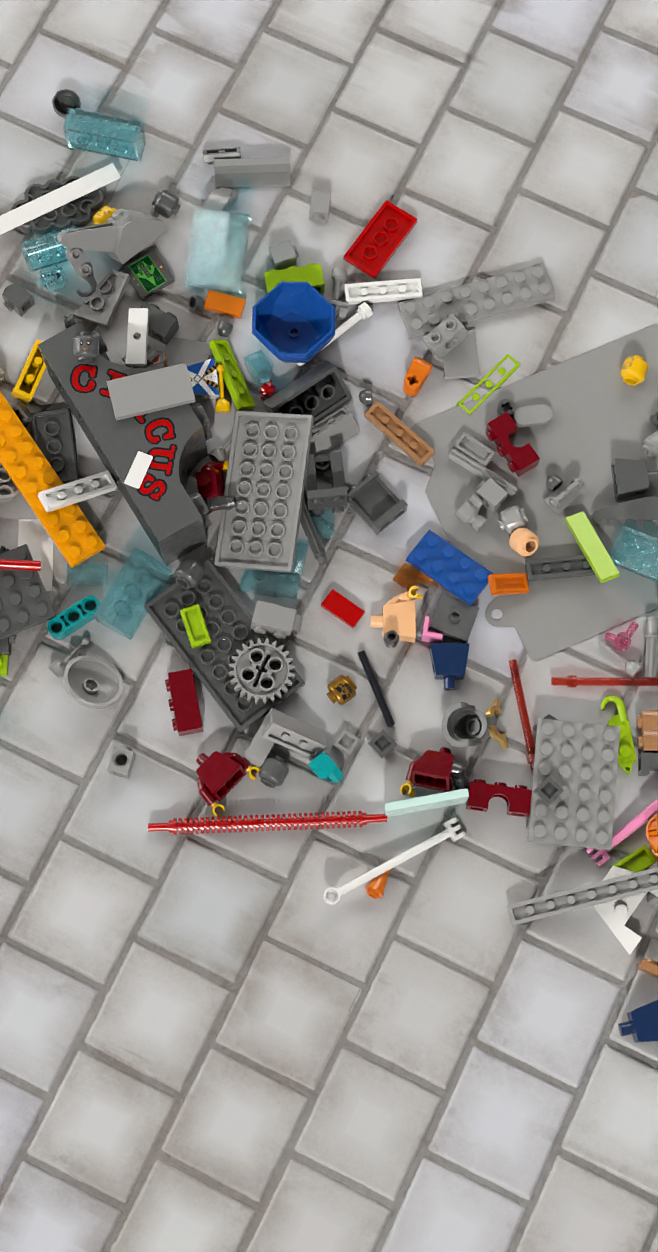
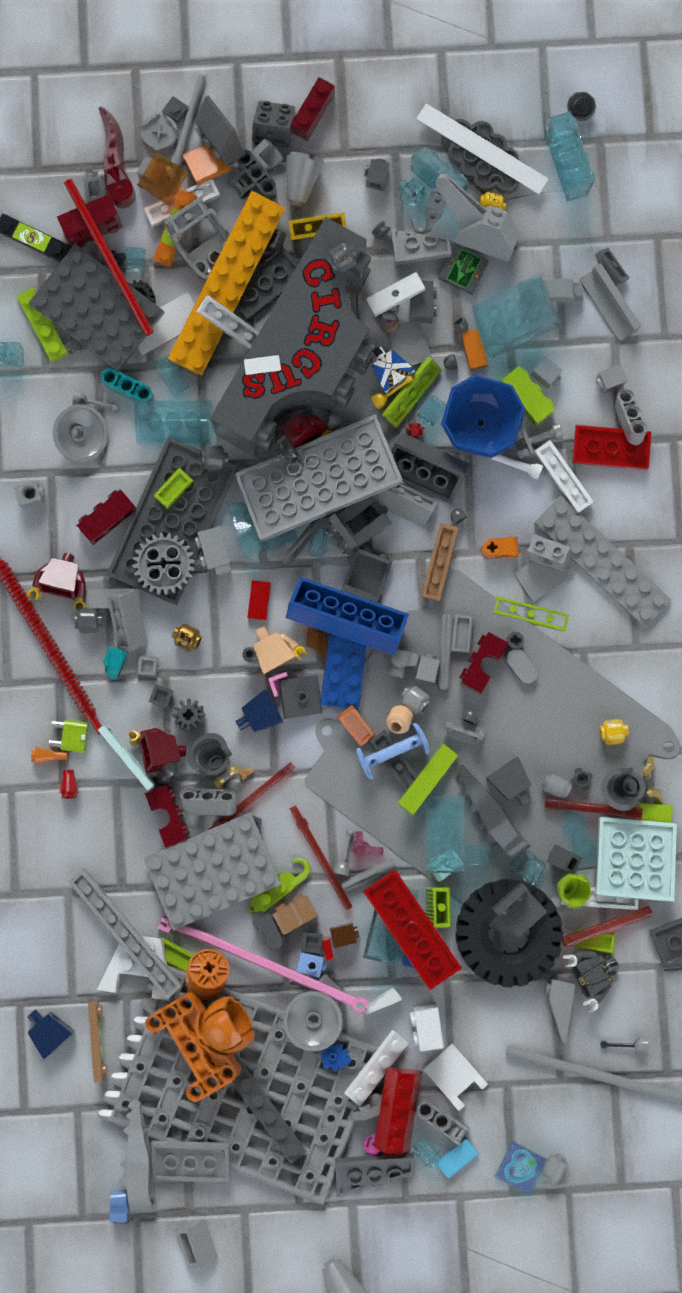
camera: 60 degrees right, 10 degrees up
(151, 391) = (336, 334): light grey tile -> none
(166, 204) = (537, 246): dark grey head -> none
(364, 207) = (629, 424): none -> light grey beam
(373, 845) = (73, 736): none -> lime piece
(376, 688) = (206, 665): black bar -> none
(404, 534) = (347, 615): none -> blue brick
(421, 876) = (68, 785): none -> red cone
(422, 724) = (184, 710): none -> dark grey gear
(449, 832) = (119, 790): white hinge -> none
(506, 752) = (208, 801): none -> light grey beam
(548, 790) = (190, 853): dark grey plate -> none
(551, 534) = (393, 750): none -> light blue hose

